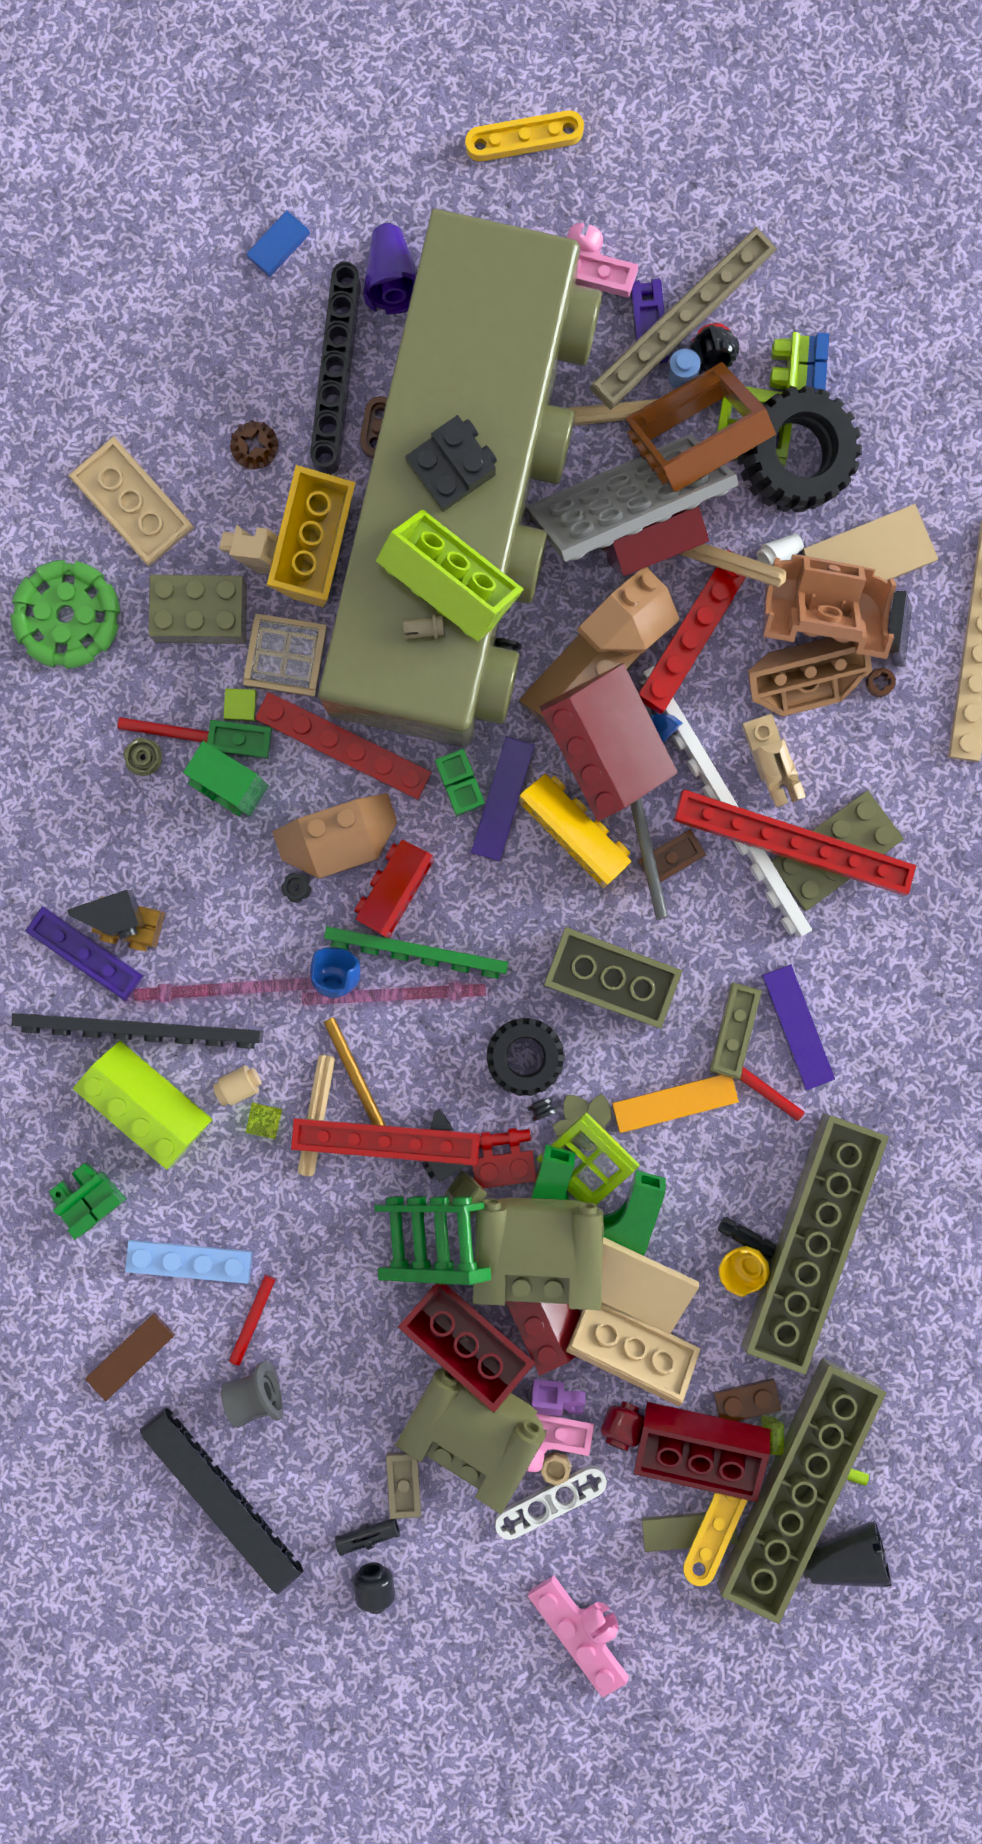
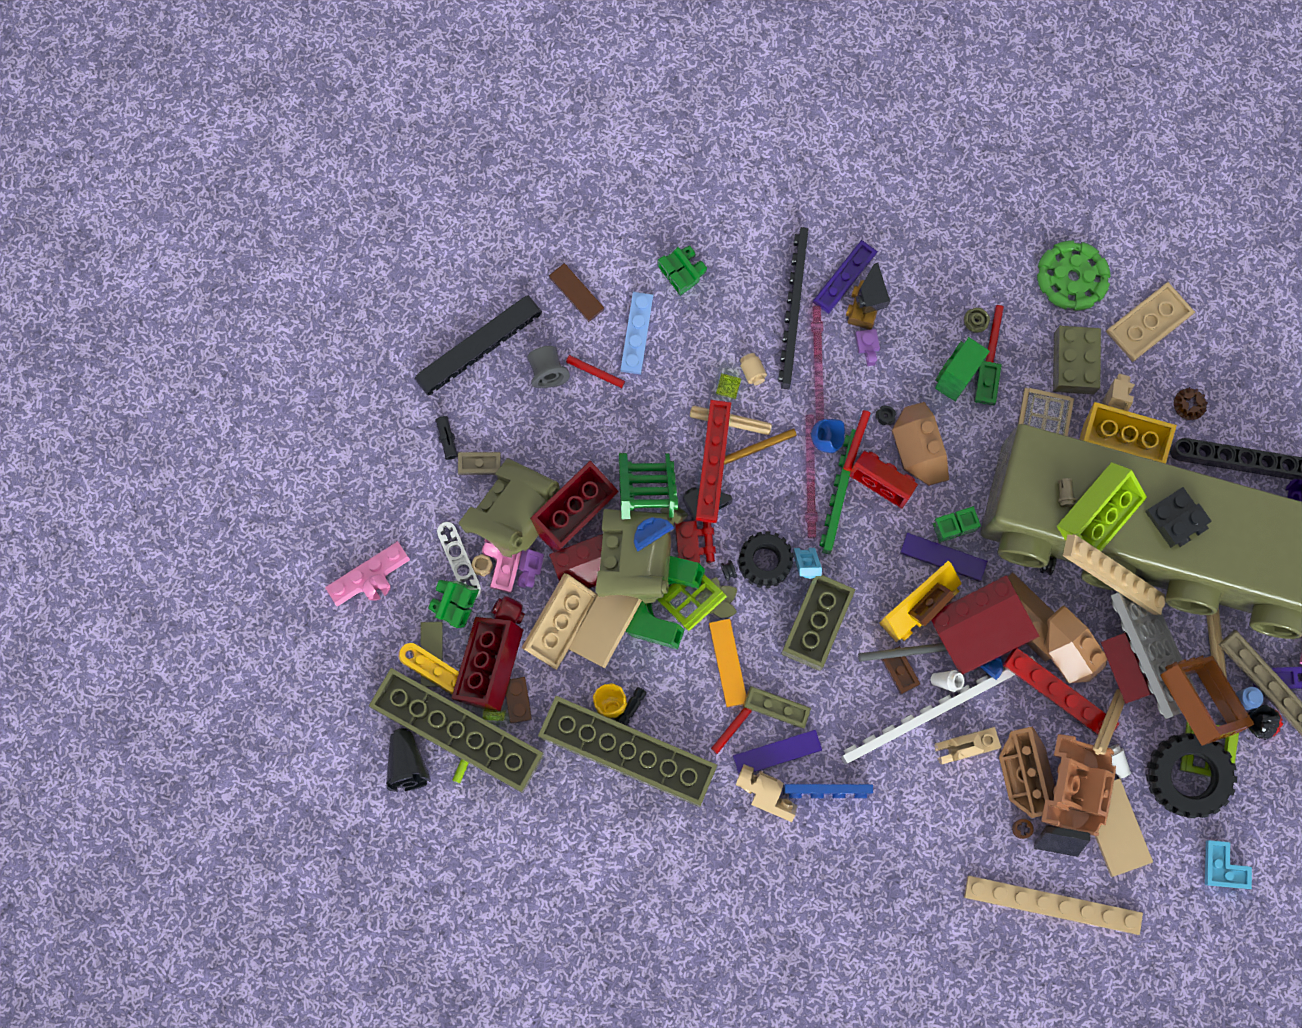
camera: 90 degrees right, 10 degrees down
(142, 1104) = (743, 308): lime slope -> none
(187, 917) = (868, 343): none -> medium lavender plate
(240, 704) = (1011, 385): lime tile -> none
(342, 931) = (856, 440): none -> red bar
(343, 745) = (981, 452): red plate -> none
(373, 1588) = (412, 439): black head -> none
(507, 1236) = (651, 530): none -> blue tile
(530, 997) = (807, 562): none -> medium azure plate
(541, 560) = (1113, 574): none -> tan plate
(585, 818) = (931, 604): none -> reddish brown plate
(616, 1506) = (455, 602): none -> green hips
(684, 779) = (948, 680): none -> white cone
(794, 842) = (909, 753): red plate -> none
(805, 362) = (1254, 788): lime hips -> none
(848, 967) = (837, 790): none -> blue plate
(857, 823) = (902, 788): olive plate -> none
(860, 1041) = (767, 793): none -> tan plate
(921, 412) = (1220, 872): none -> medium azure plate

